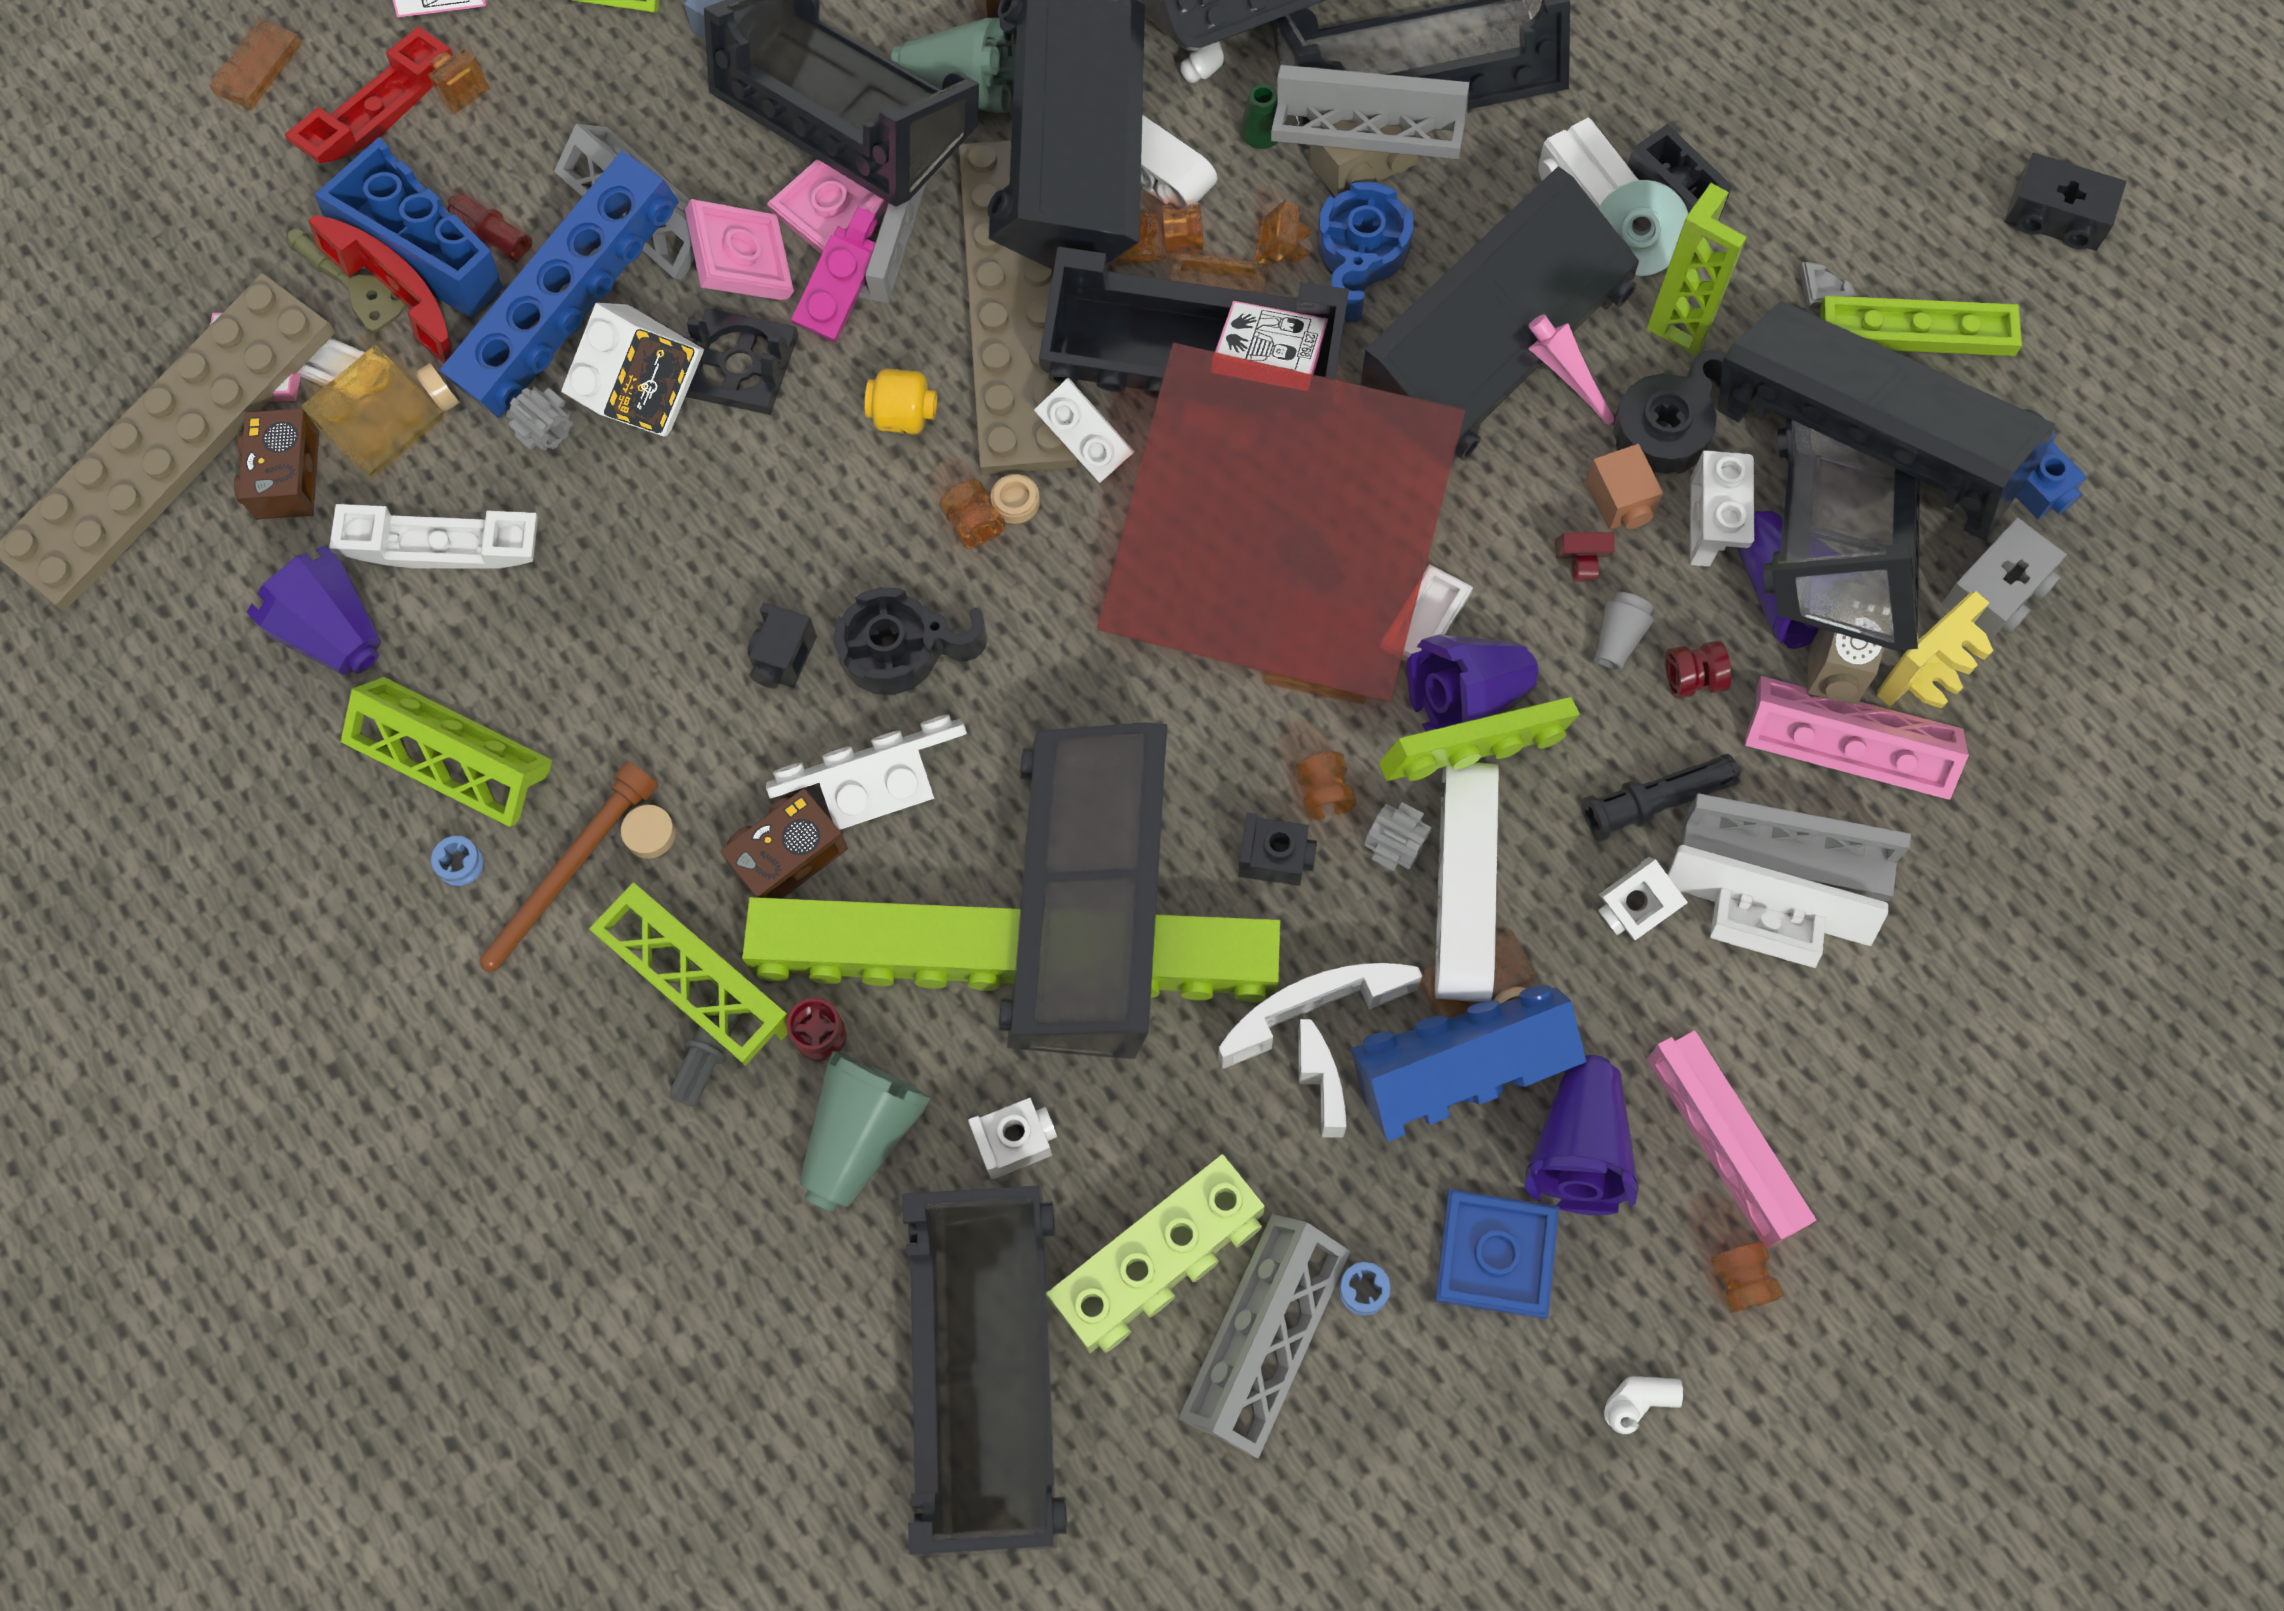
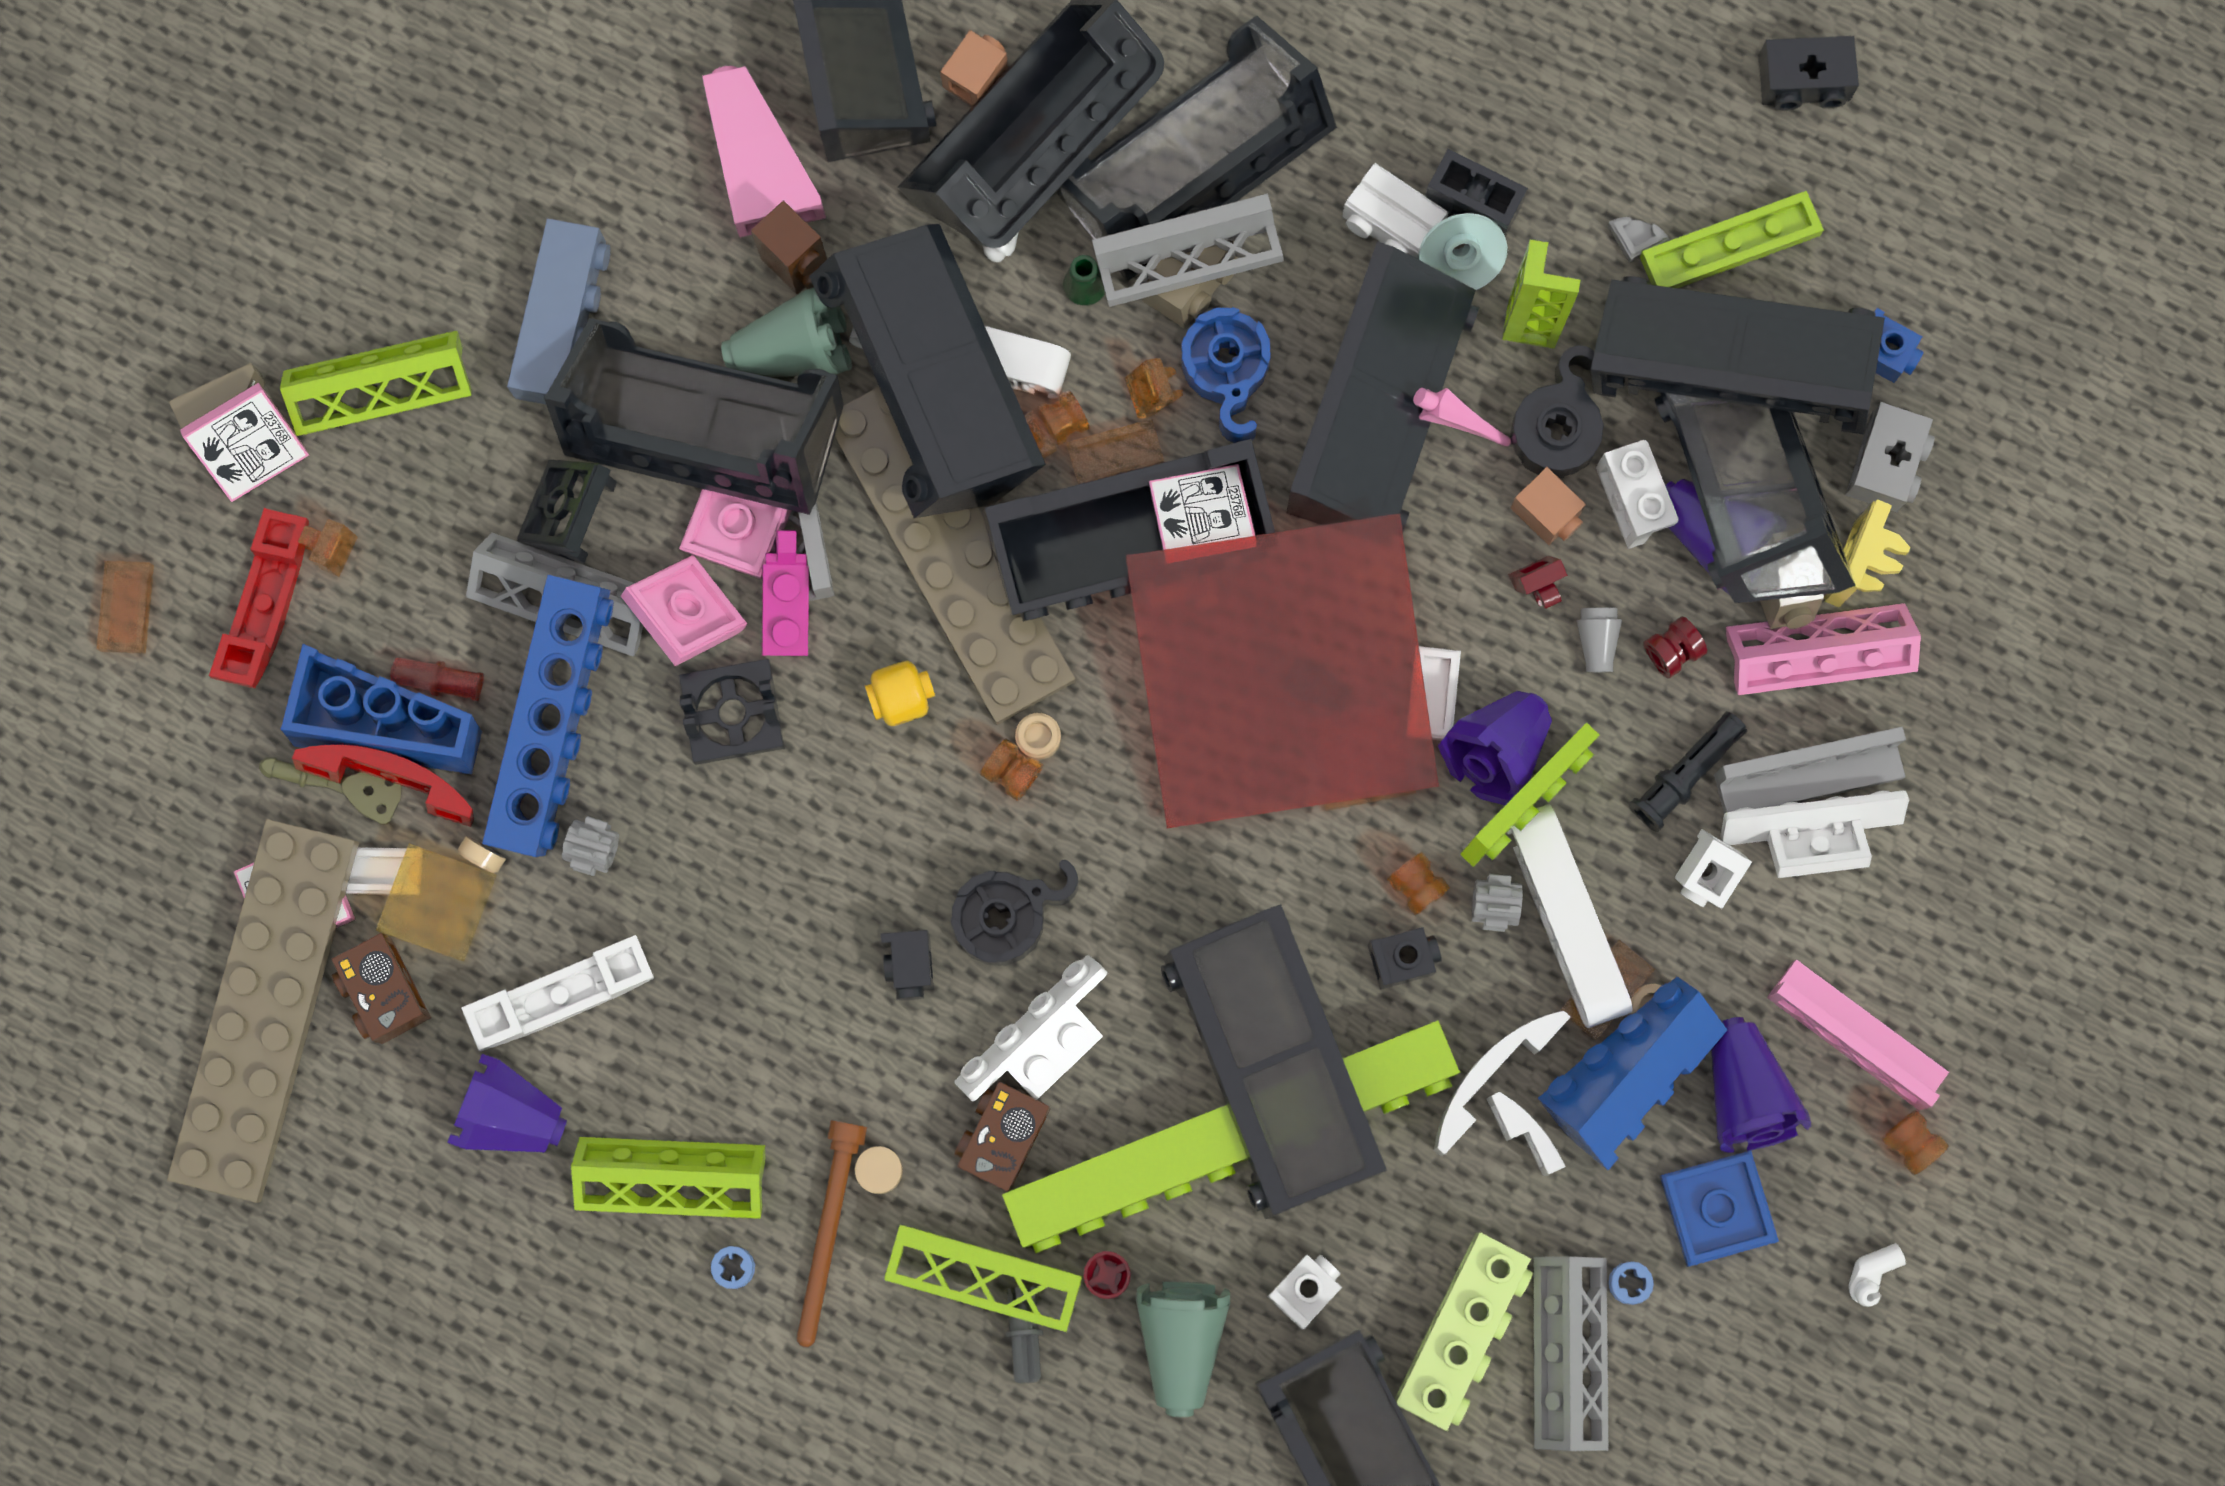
camera: 25 degrees left, 10 degrees up
(632, 368) = (654, 768): slope -> none
(679, 121) = (542, 522): none -> black piece
(1084, 430) = (1072, 653): white hinge -> none

